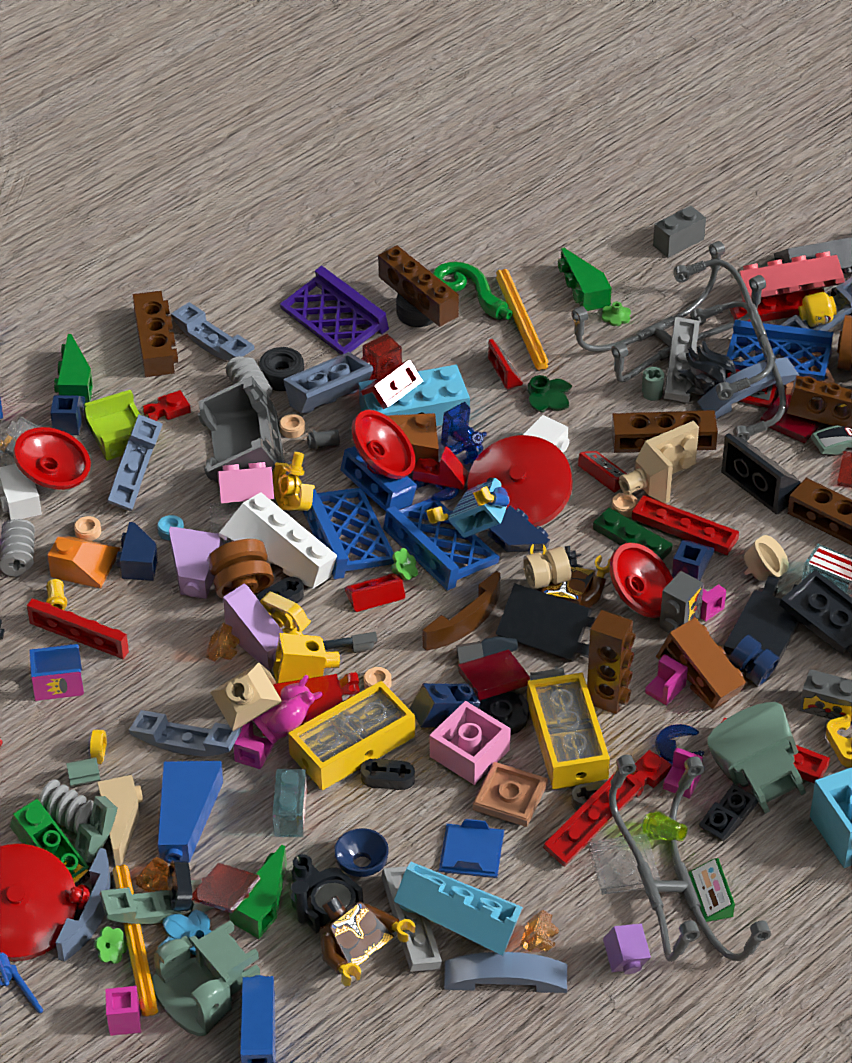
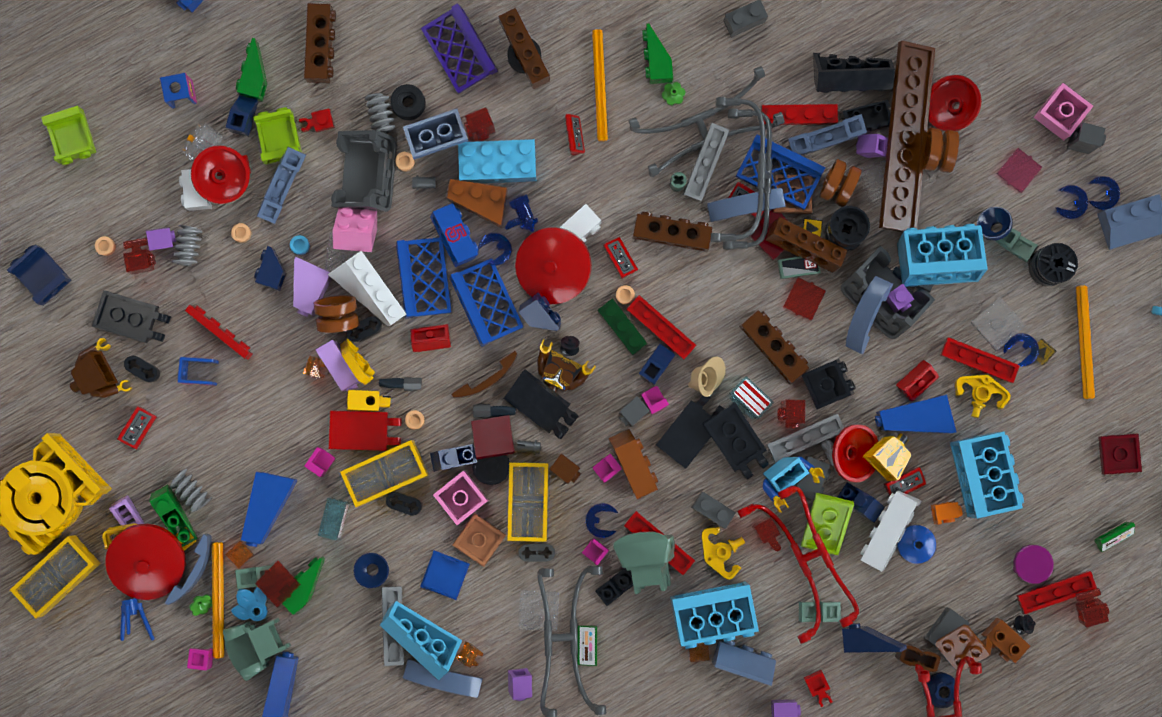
camera: 10 degrees right, 40 degrees up
(56, 594) = (209, 296): yellow pin -> none
(80, 896) = (189, 565): red arm -> none
(81, 561) = (233, 263): orange slope -> none
(83, 772) = (204, 459): sand green piece -> none
(94, 834) = (203, 517): sand green slope -> none
(98, 745) = (217, 438): yellow tile -> none
(125, 797) = (223, 498): tan slope -> none
(131, 908) = (216, 583): sand green slope -> none
(179, 885) = (250, 572): black beam -> none
(182, 738) = (275, 443): sand blue slope -> none
(207, 336) = (362, 53): sand blue slope -> none
(246, 696) = (314, 436): tan plate -> none
(289, 486) = (387, 235): yellow piece -> none
(289, 713) = (342, 453): dark pink animal -> none
(321, 887) = (344, 603): black piece -> none
(356, 935) = (352, 638): torso -> none
(383, 444) = (465, 224): red dish -> none
(394, 384) = (478, 158): panel -> none
(404, 564) = (455, 322): bright green plant -> none
(447, 472) = (500, 240): red slope -> none
(477, 510) = (514, 292): torso -> none
(489, 303) = (579, 64): green plant -> none
(548, 393) = (601, 173): dark green plate -> none
(551, 566) = (553, 363): tan wheel -> none
(589, 820) = (525, 575): red plate -> none
(639, 578) = (620, 384): red dish -> none
(651, 770) = (576, 537): red plate -> none
(660, 459) = (647, 281): tan plate -> none
(661, 827) = (570, 593): clear neon green cone -> none
(706, 369) = (718, 188): black hair -> none
(753, 660) = (670, 470): dark blue wheel -> none
(757, 473) = (729, 293): black slope -> none
(797, 275) = (813, 99): coral wedge -> none
(817, 309) = (822, 136): yellow head -> none

